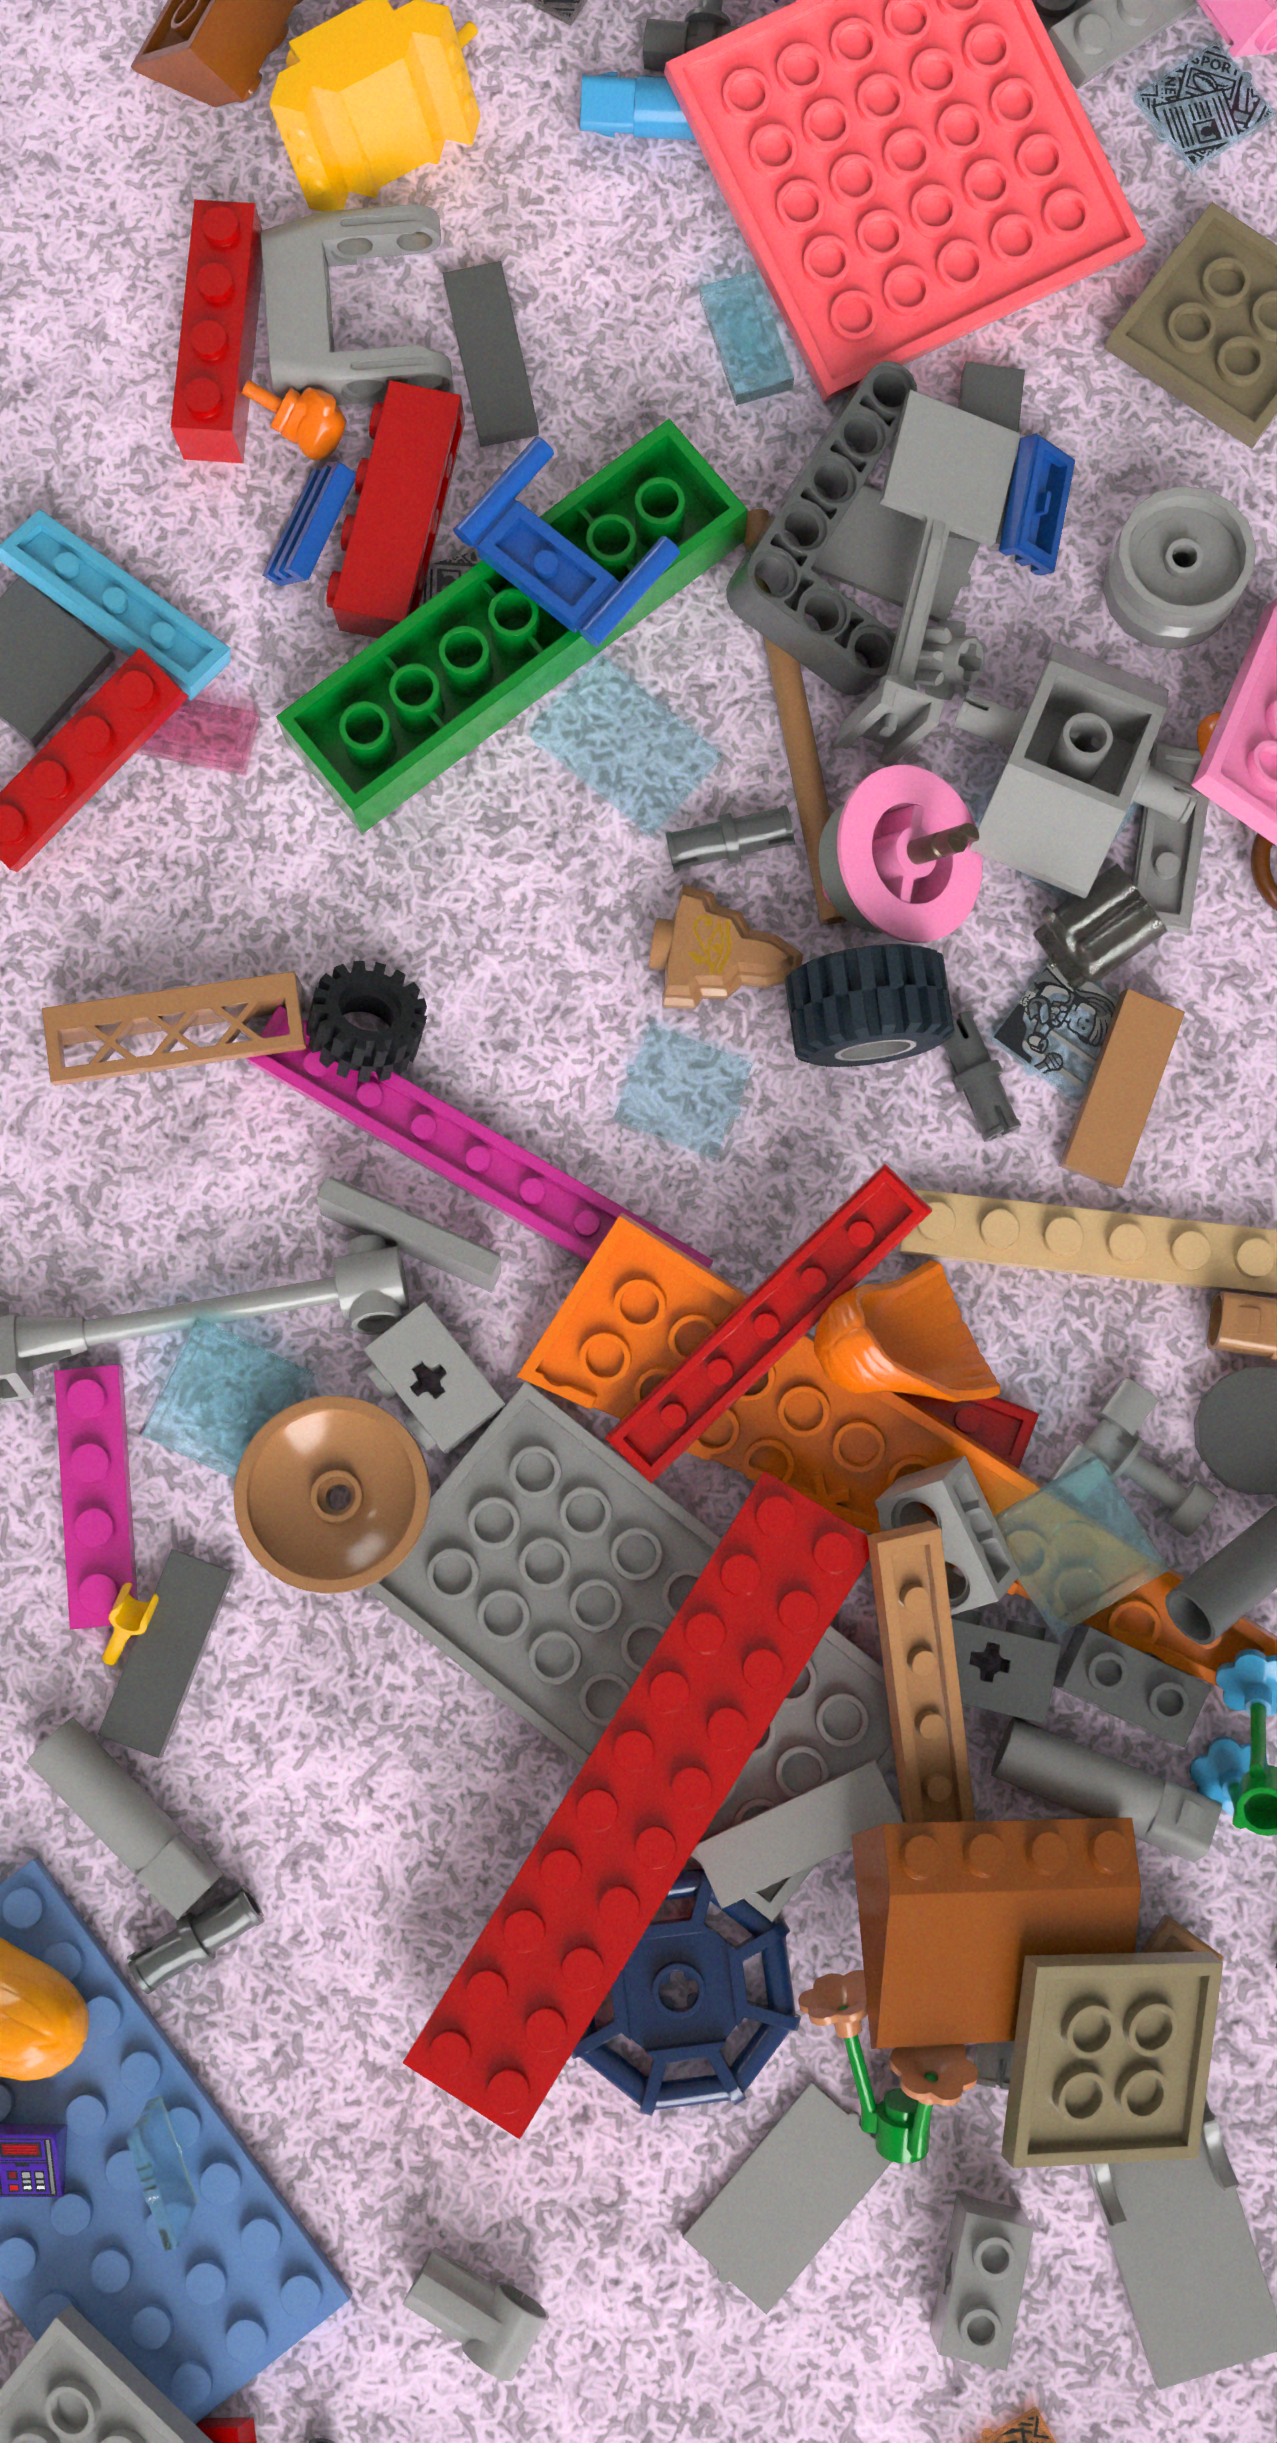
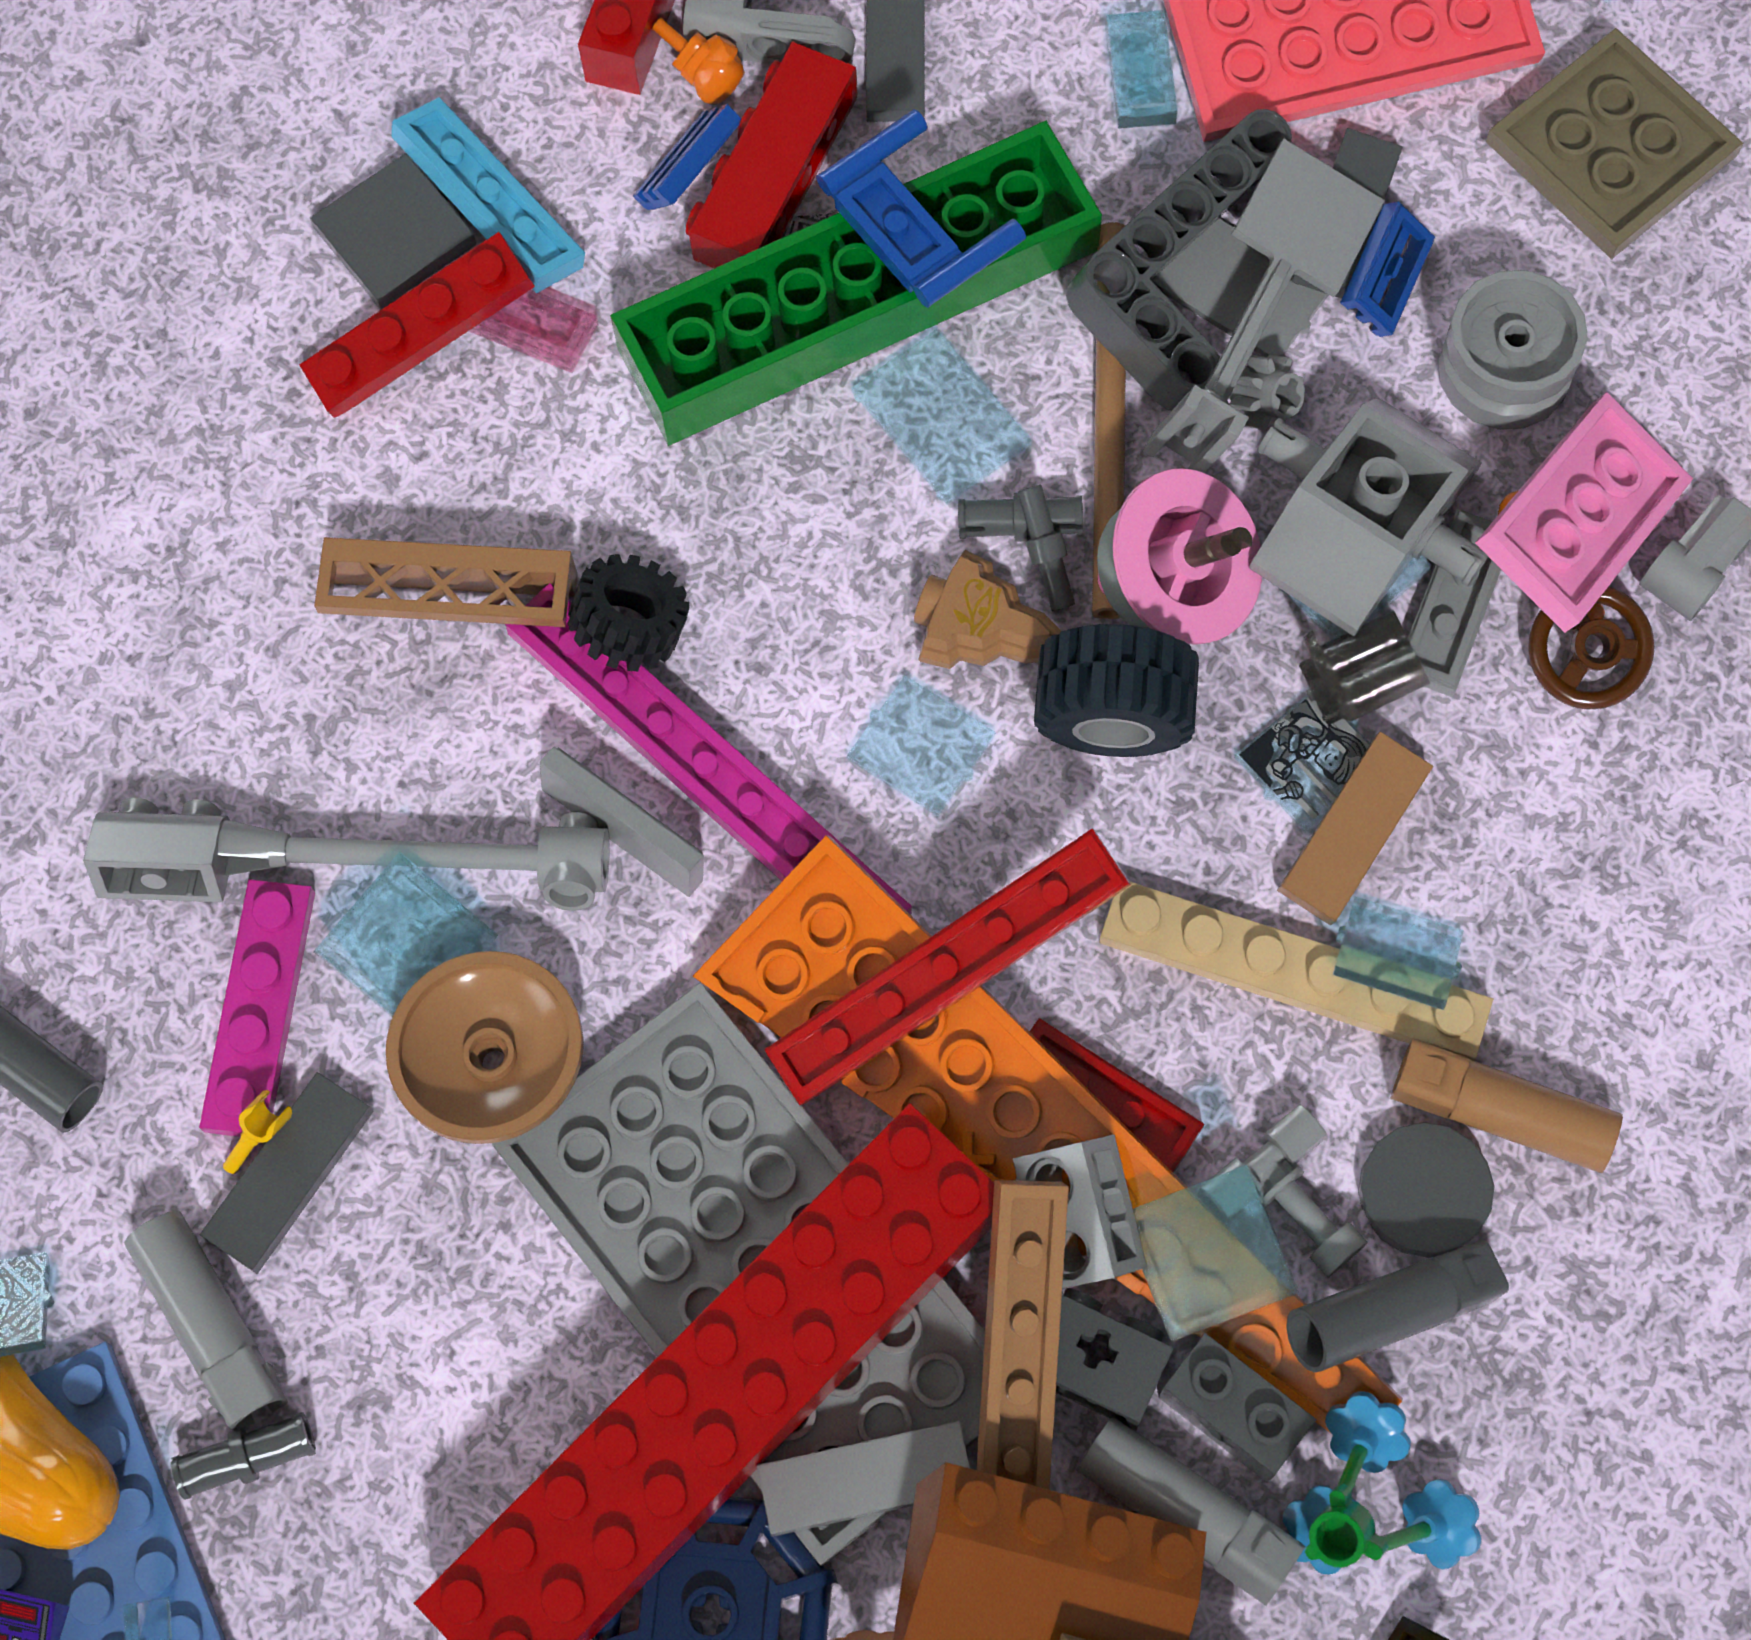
camera: 15 degrees right, 10 degrees down
(424, 1342) = (603, 927): light grey brick -> none
(763, 867) = (1046, 547): none -> dark grey bar
(903, 1340) = (1078, 1013): orange hair -> none
(979, 1079) = (1215, 789): dark grey pin -> none
(1189, 1206) = (1398, 953): none -> clear light blue piece

